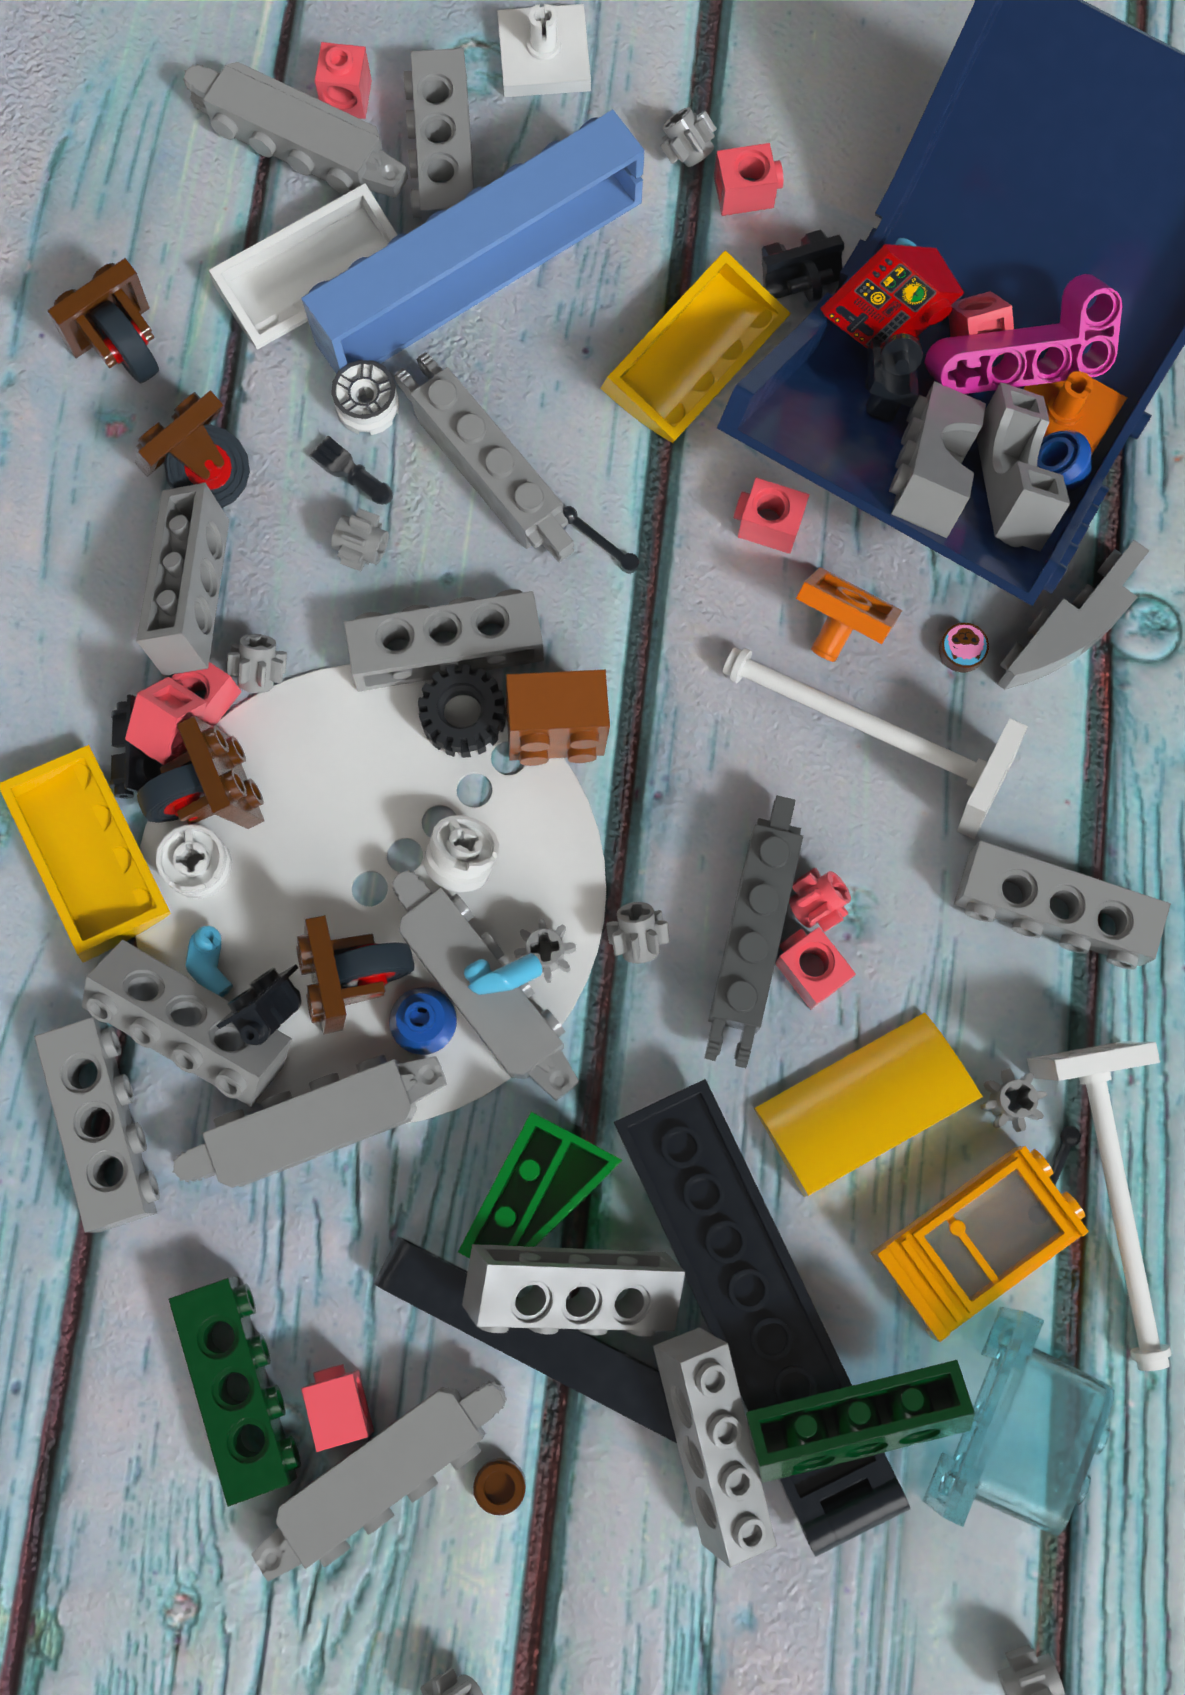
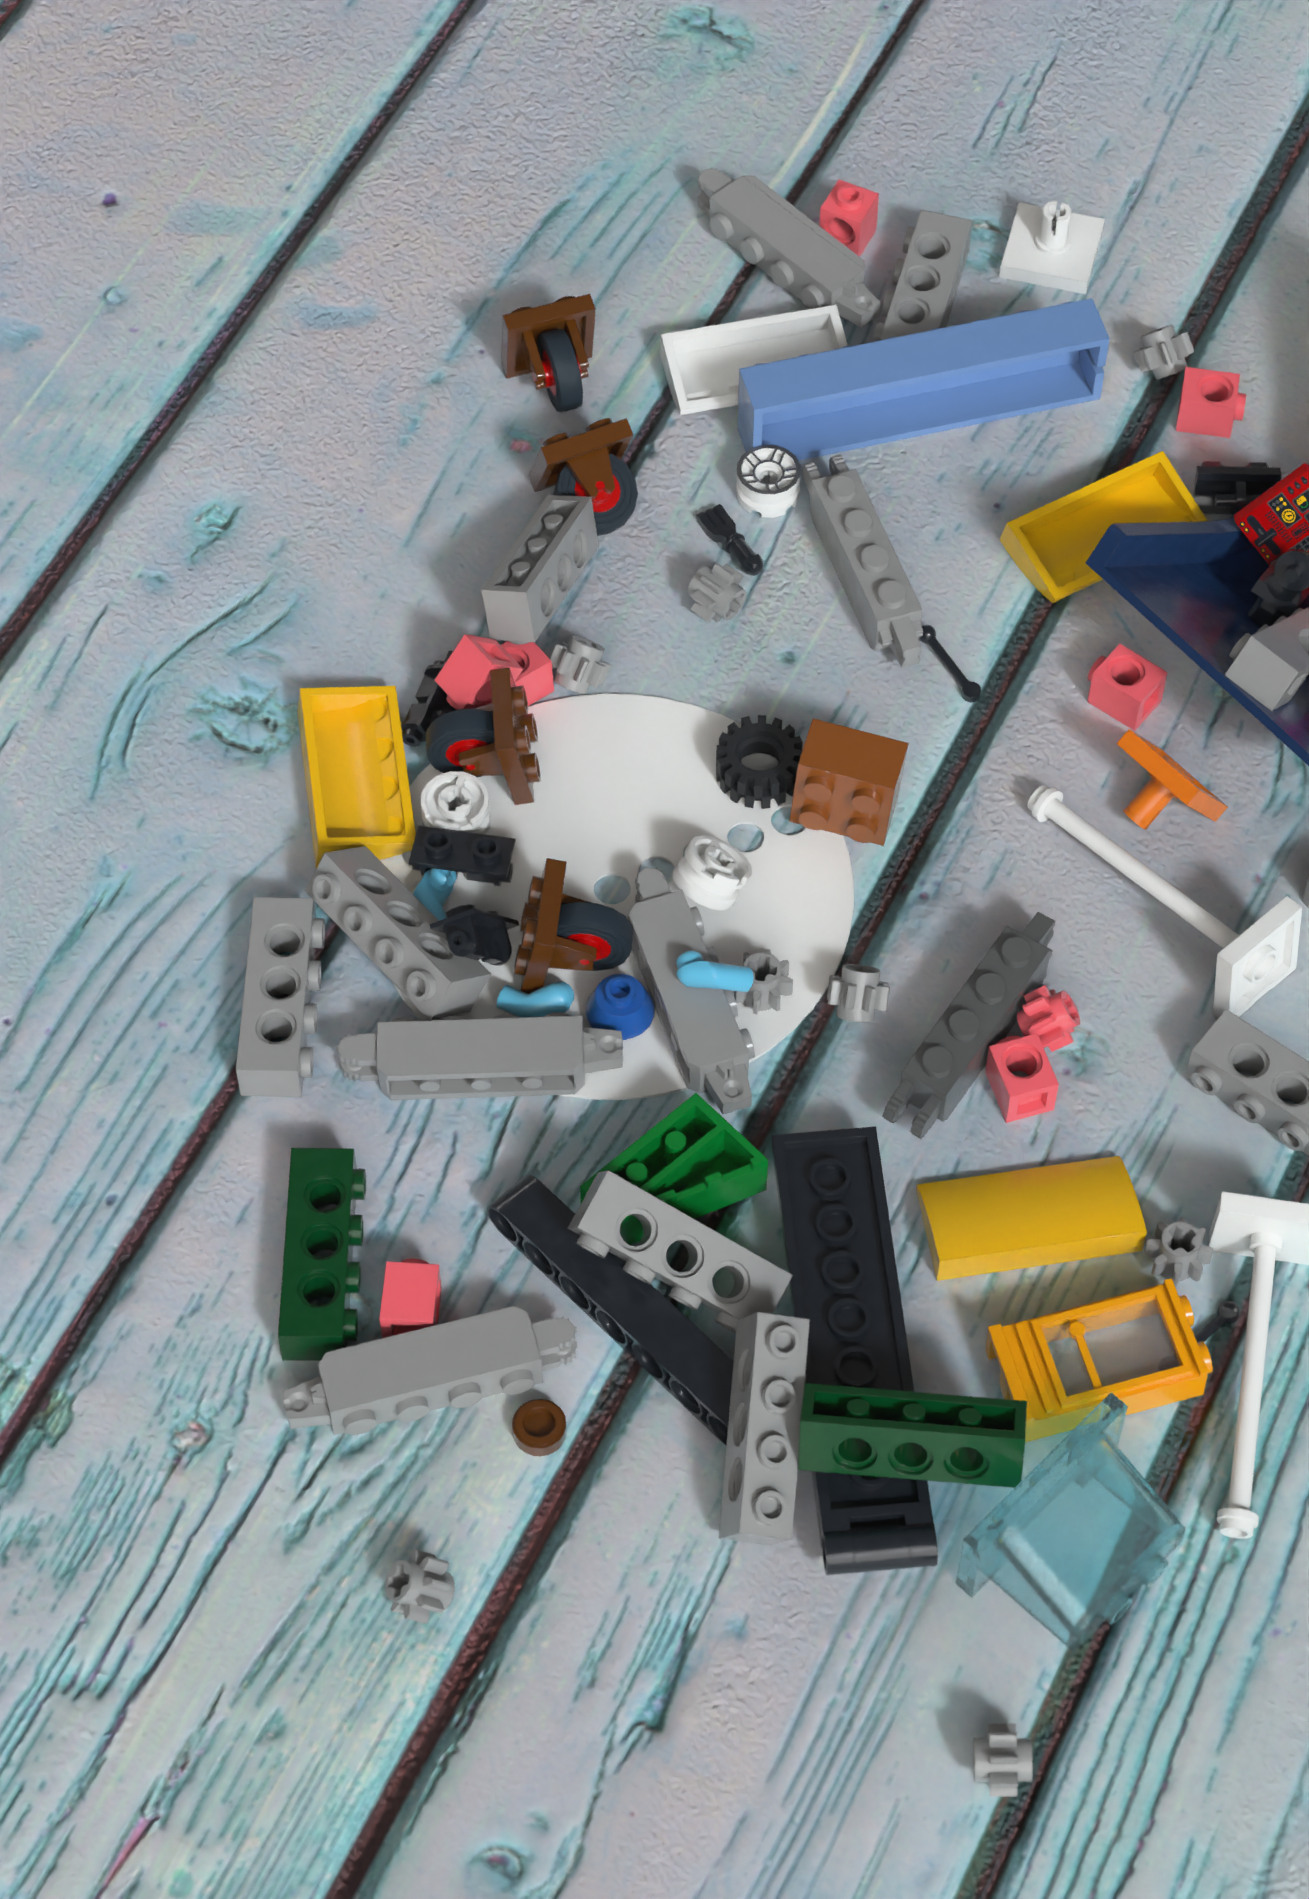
camera: 20 degrees right, 20 degrees down
(218, 912) = (479, 855): none -> black hinge
(347, 1044) = (546, 1000): none -> medium azure arm
(514, 645) = (722, 689): light grey brick -> none
(963, 647) = (1278, 856): tile -> none

